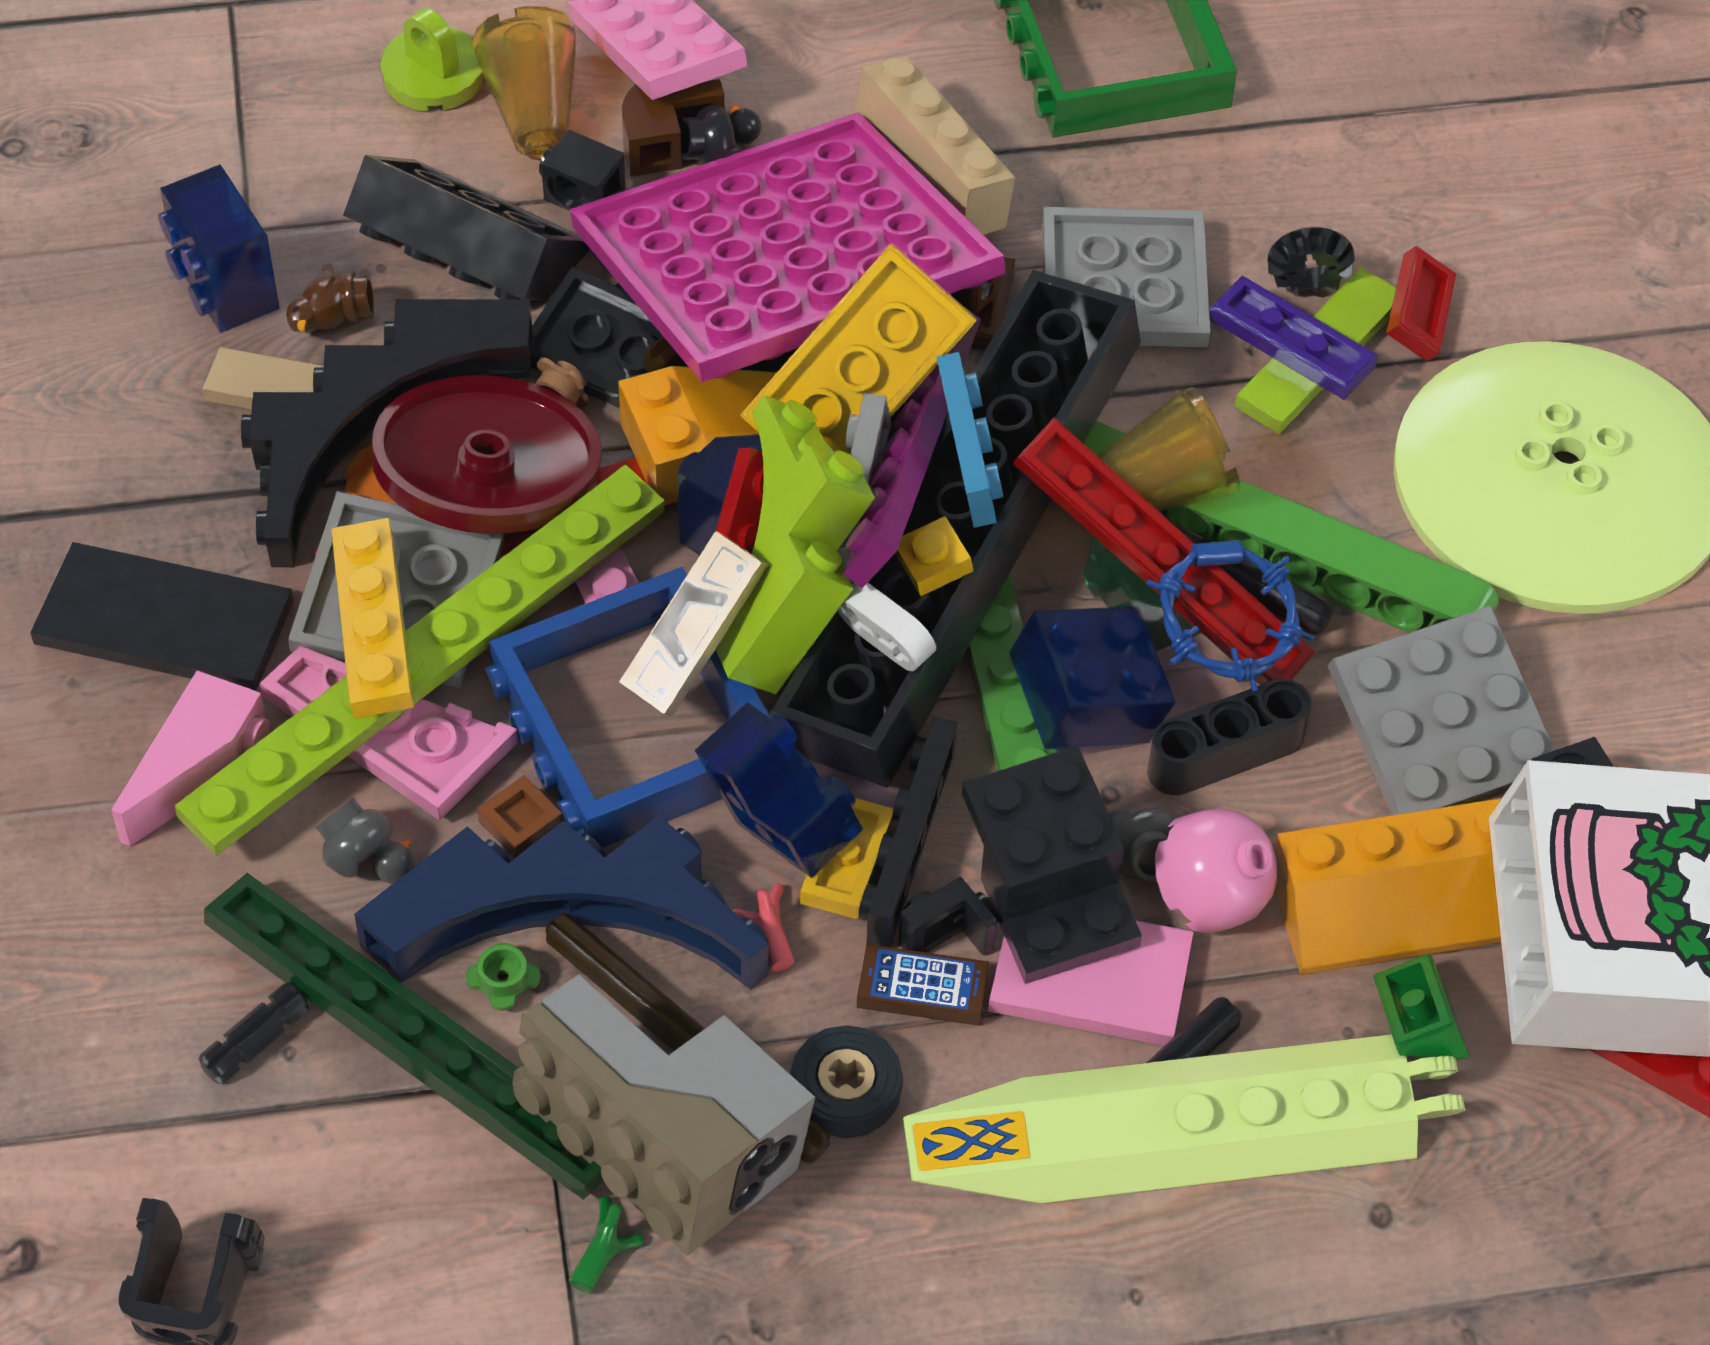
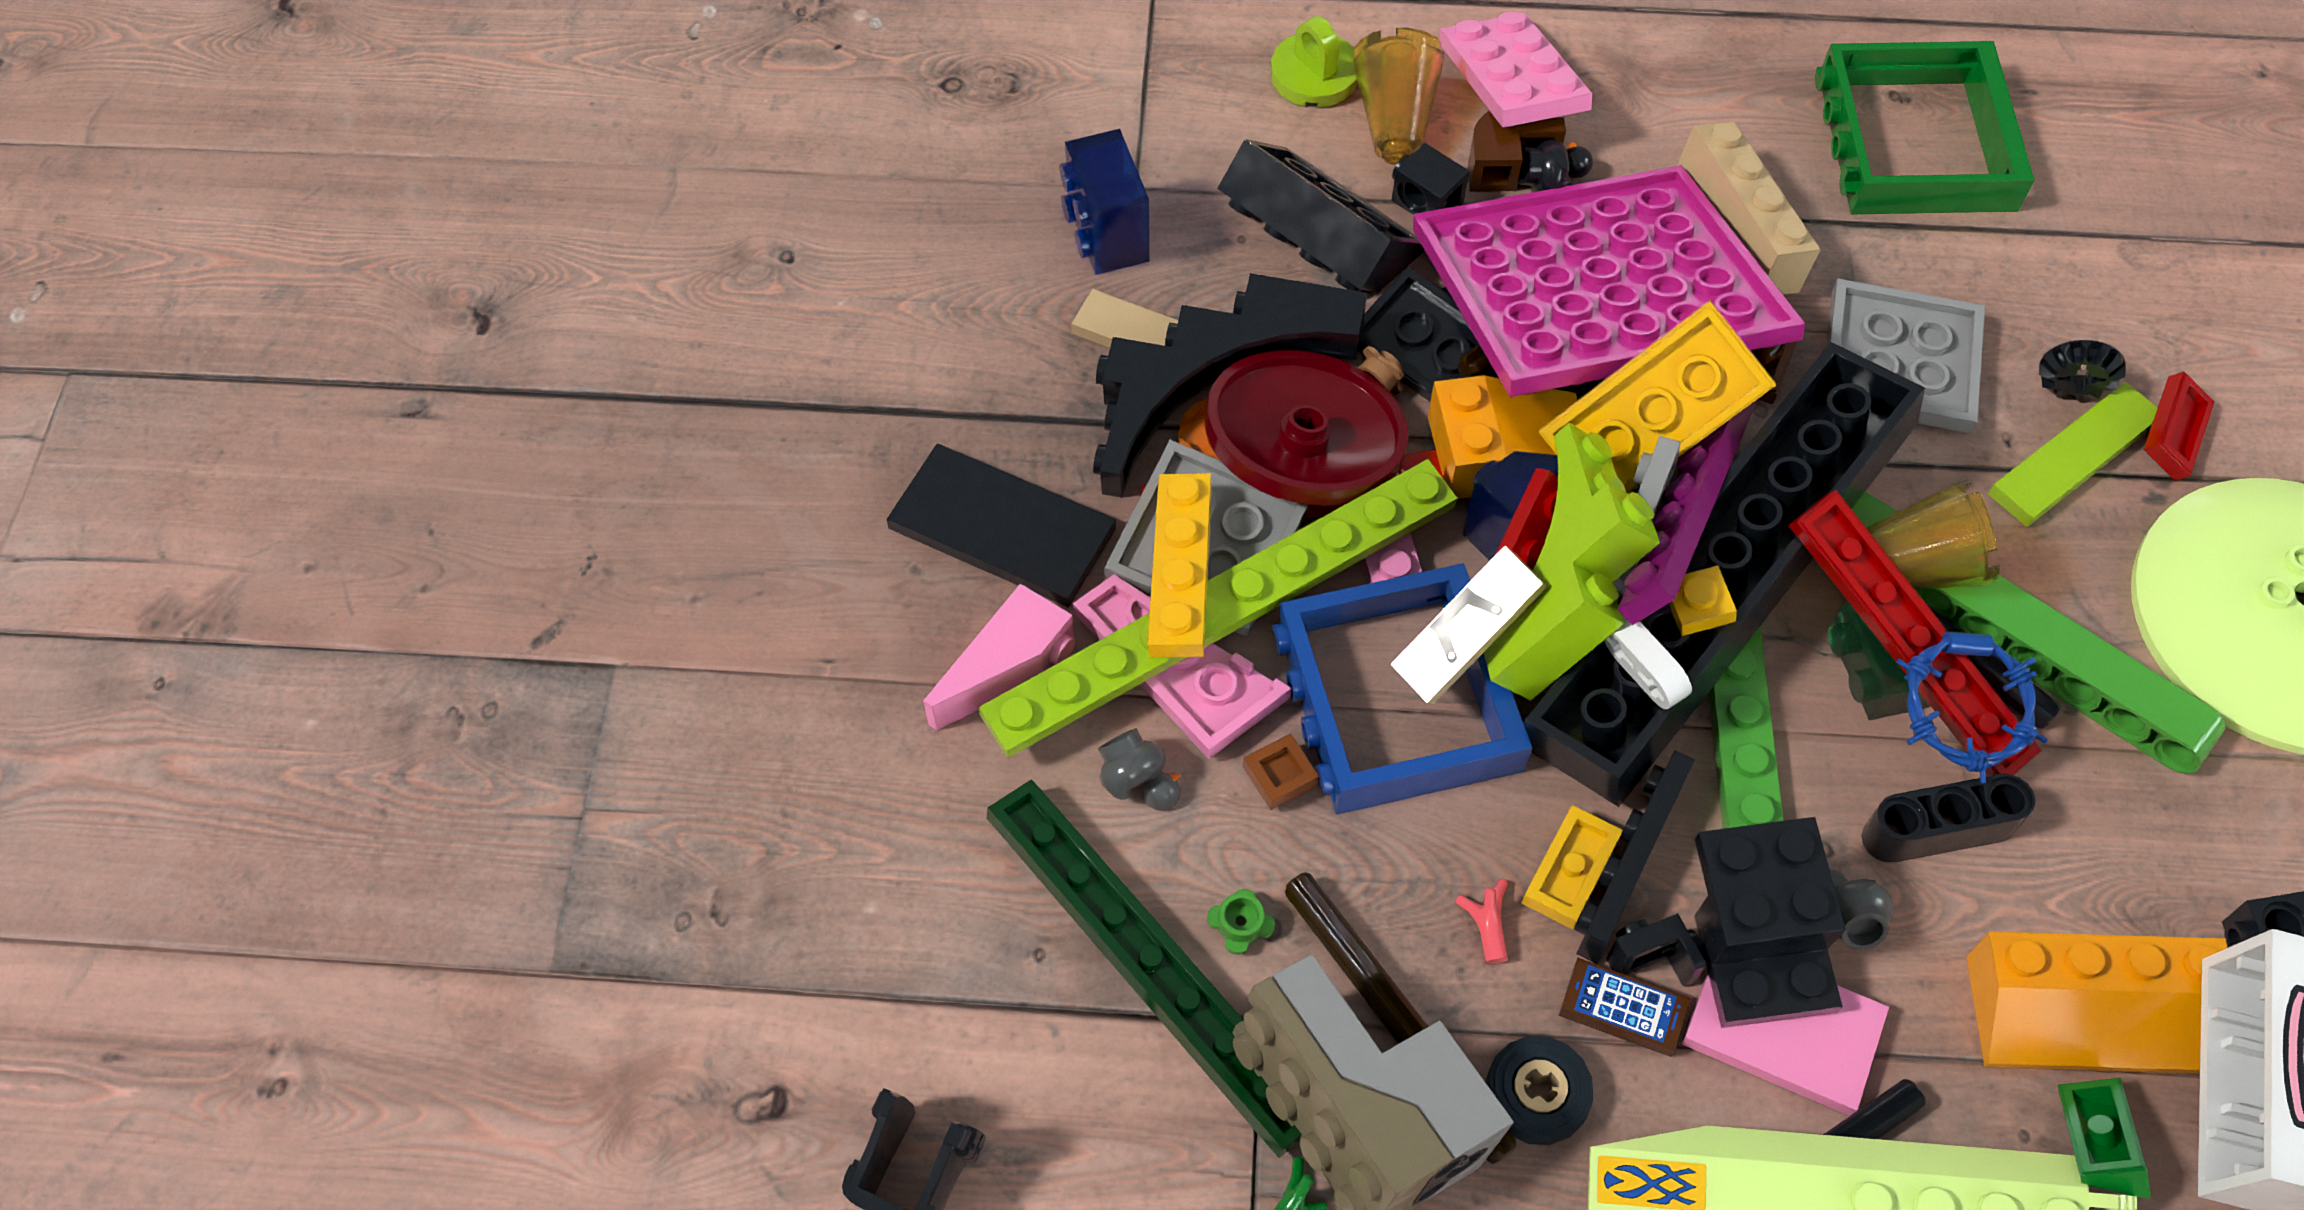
camera: 15 degrees right, 5 degrees up
(253, 1033) = (1011, 931): black axle -> none
(332, 301) = (1194, 263): reddish brown animal -> none
(476, 893) = (1382, 860): dark blue arch -> none
(778, 790) = (1520, 797): clear blue brick -> none
(971, 439) = (1752, 496): dark azure plate -> none
(1091, 677) = (1827, 738): clear blue brick -> none
(1216, 869) = (1924, 953): bright pink cylinder -> none
(1293, 337) = (2055, 439): dark purple tile -> none
(1441, 713) = (2159, 836): light grey plate -> none

